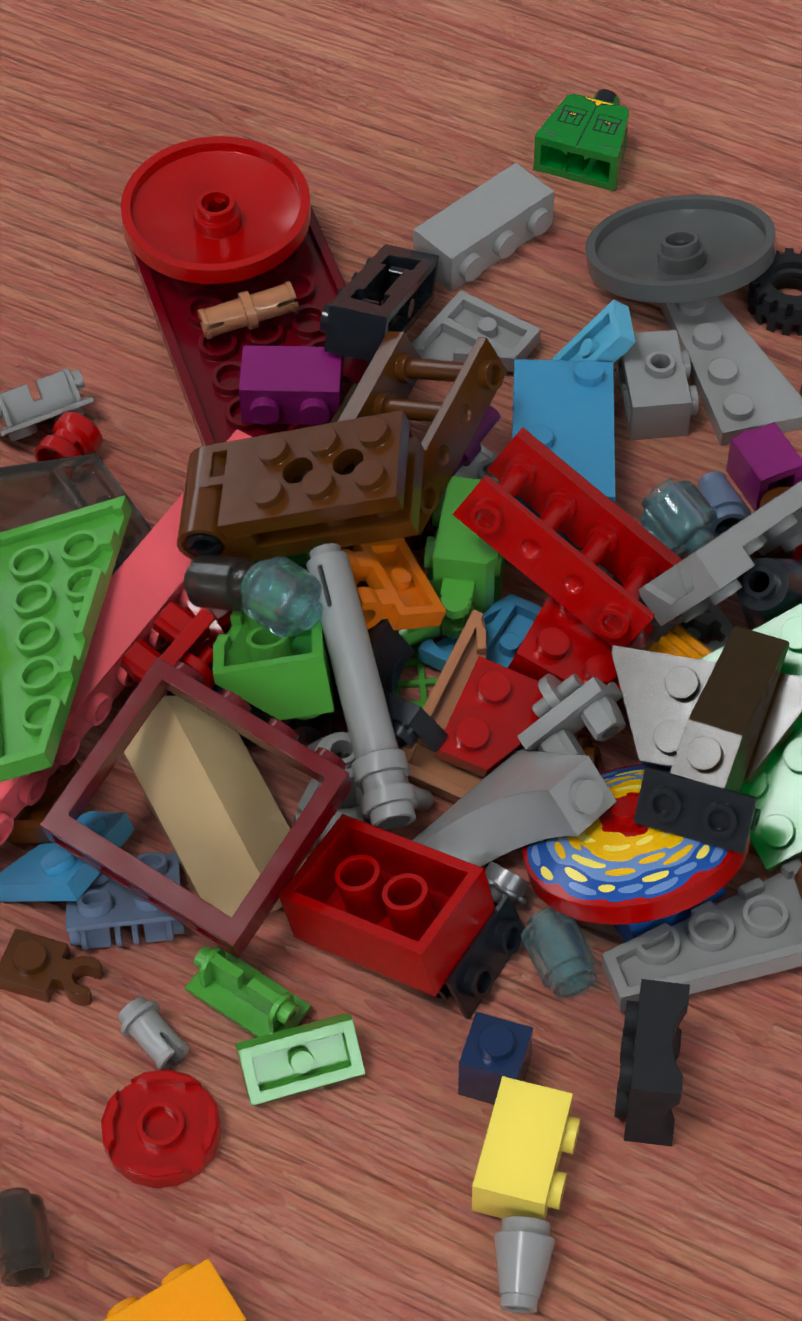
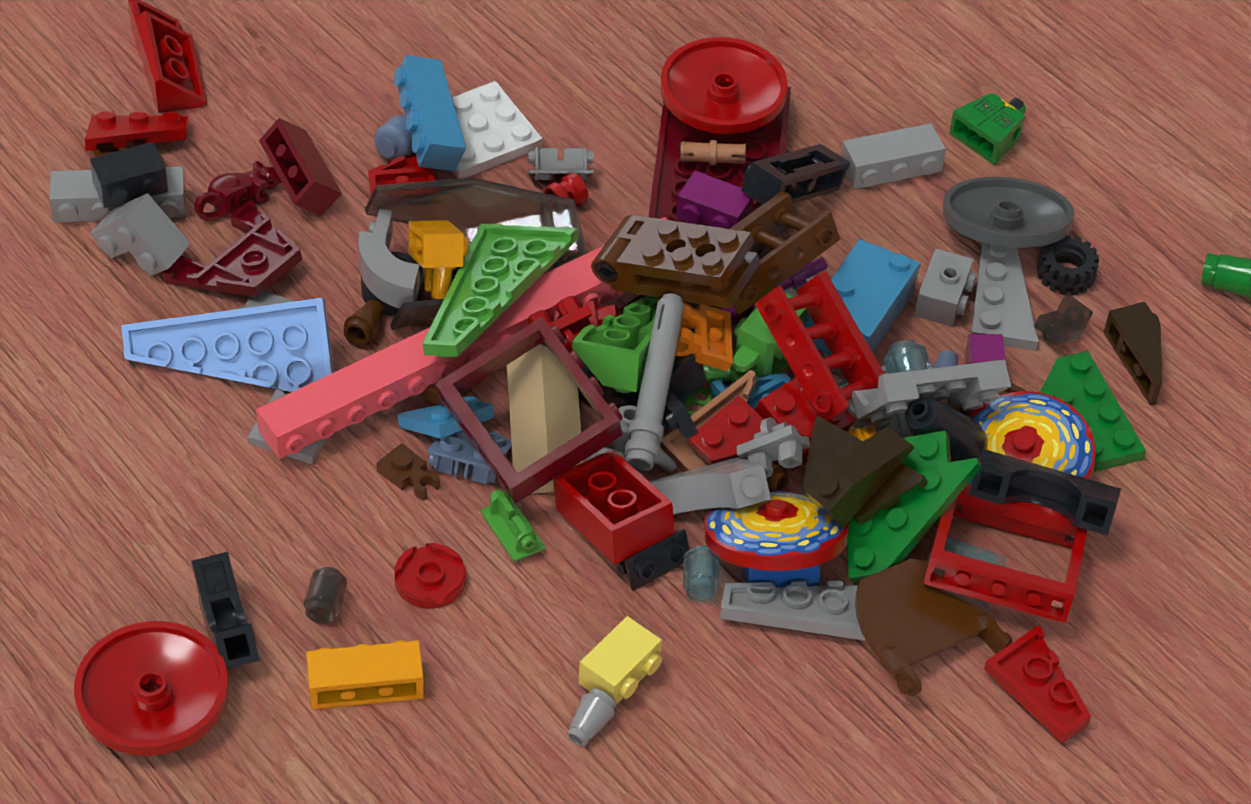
camera: 20 degrees right, 5 degrees down
(153, 1034) = (447, 518): light grey pin -> none
(216, 581) = (608, 297): clear smoke brick -> none
(281, 596) = (633, 314): clear light blue head -> none
(300, 1058) = (523, 569): plate -> none
(467, 318) = (852, 218): light grey wing -> none
(493, 1051) = (634, 602): dark blue brick -> none
(505, 883) = (690, 524): flat silver plate -> none
(603, 338) = (923, 246): medium azure plate -> none
(648, 1067) = (717, 643): black brick -> none
(696, 810) = (811, 518): black hinge -> none

